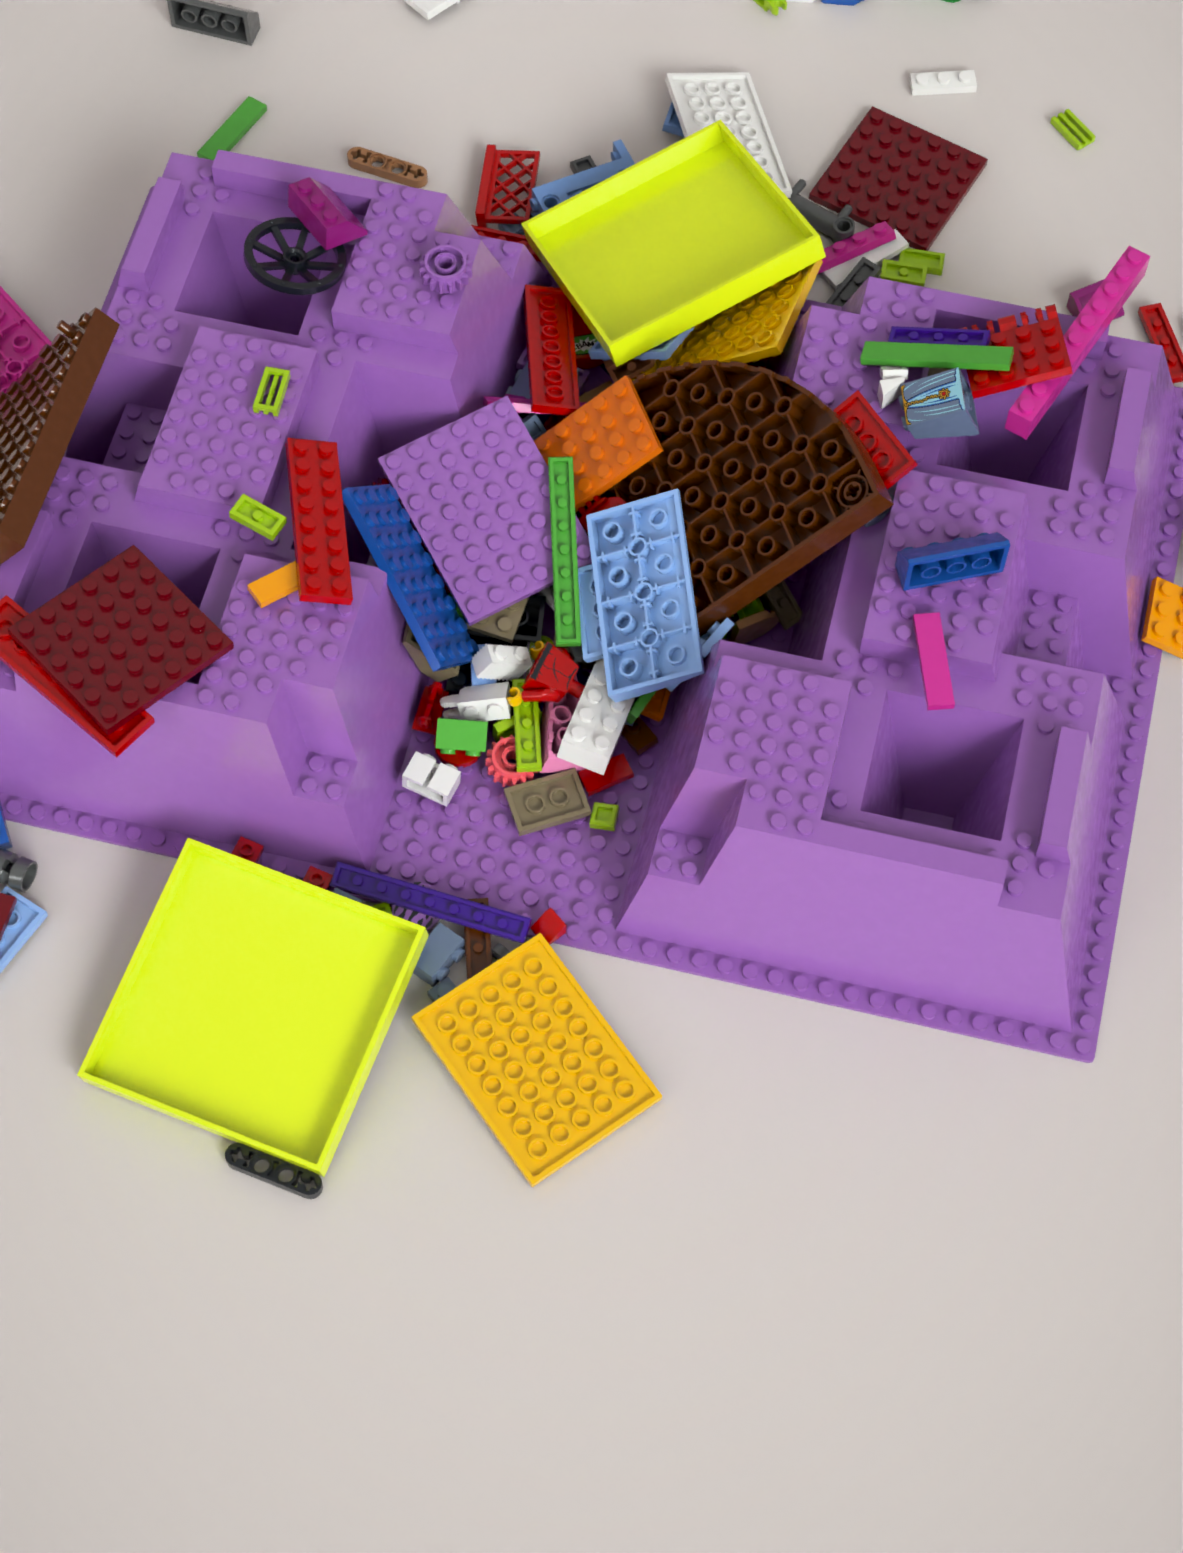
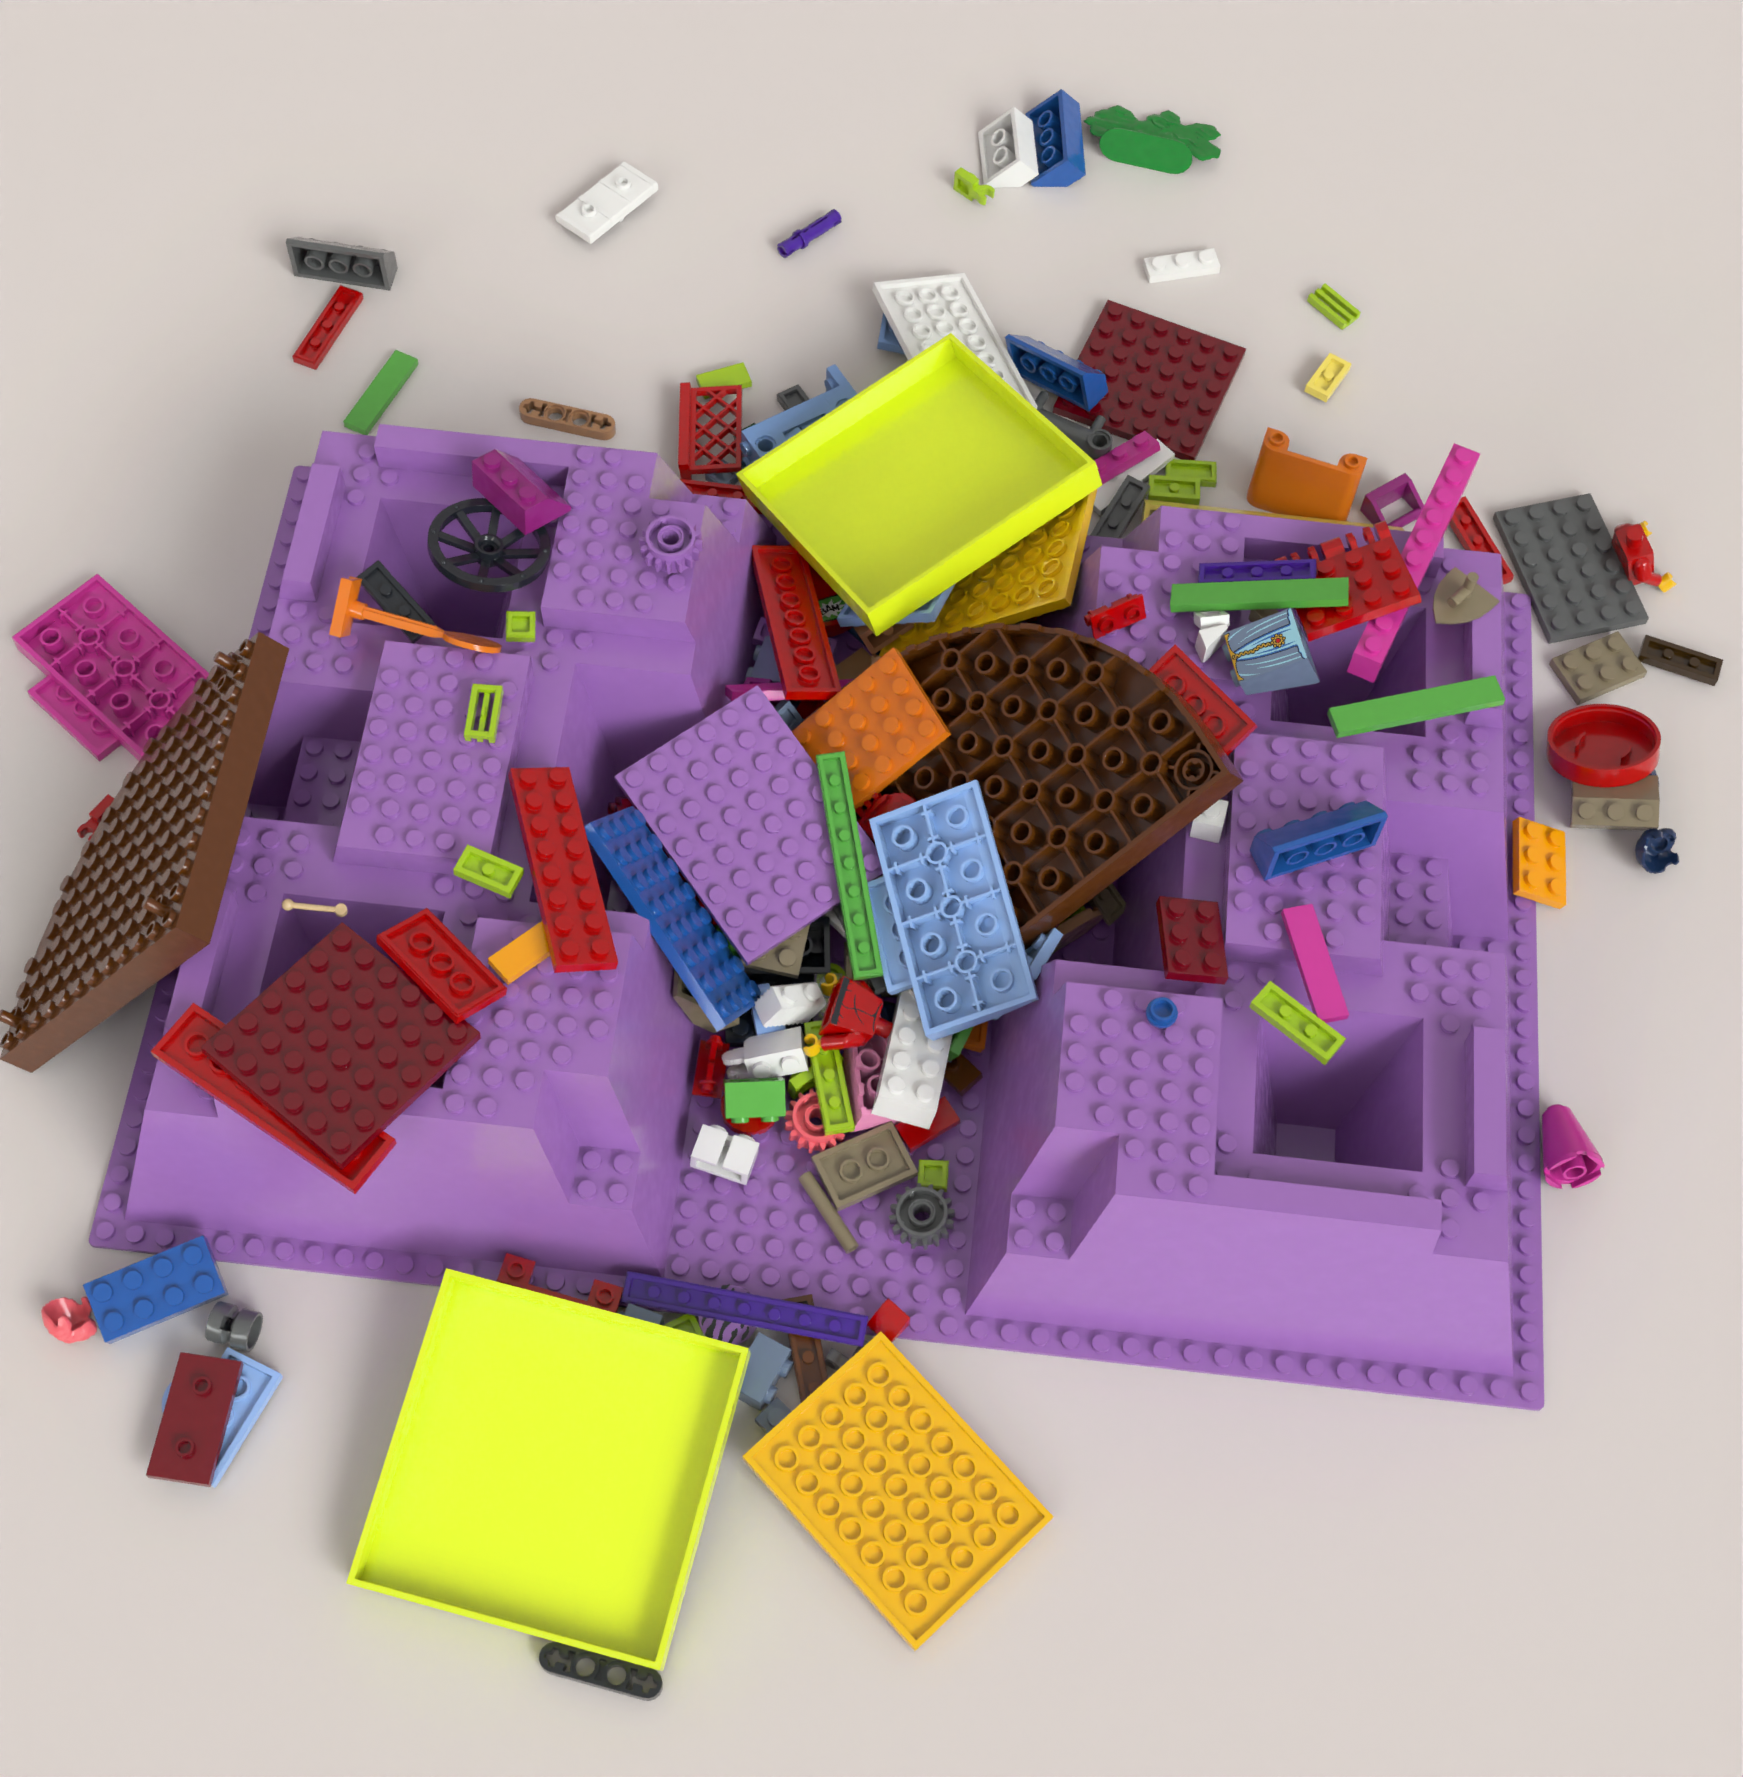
camera: 10 degrees left, 0 degrees up
(133, 535) = (340, 909): none -> tan hinge
(173, 297) = (348, 608): none -> orange piece
(194, 72) = (328, 327): none -> red tile
(209, 586) = (441, 965): none -> red tile
(212, 295) = (392, 596): none -> black tile
(313, 326) = (520, 626): none -> lime tile
(512, 835) = (828, 1212): none -> dark tan piece
(532, 142) = (726, 376): none -> lime tile
(585, 834) = (927, 1231): none -> dark grey gear
(612, 30) = (801, 238): none -> dark purple pin
(797, 686) = (1161, 1012): none -> blue plate
(813, 363) = (1120, 614): none -> red hinge
(814, 163) = (1057, 371): none -> blue slope
(834, 632) = (1191, 940): none -> dark red plate
(868, 539) = (1210, 823): none -> white brick
(910, 706) = (1297, 1022): none -> lime plate
(1017, 279) = (1303, 485): none -> orange windscreen
(1056, 190) = (1327, 377): none -> light yellow plate
(1058, 462) = (1415, 706): none -> bright green tile
(1115, 377) = (1461, 599): none -> dark tan shield
(1150, 855) = (1567, 1150): none -> dark pink cone

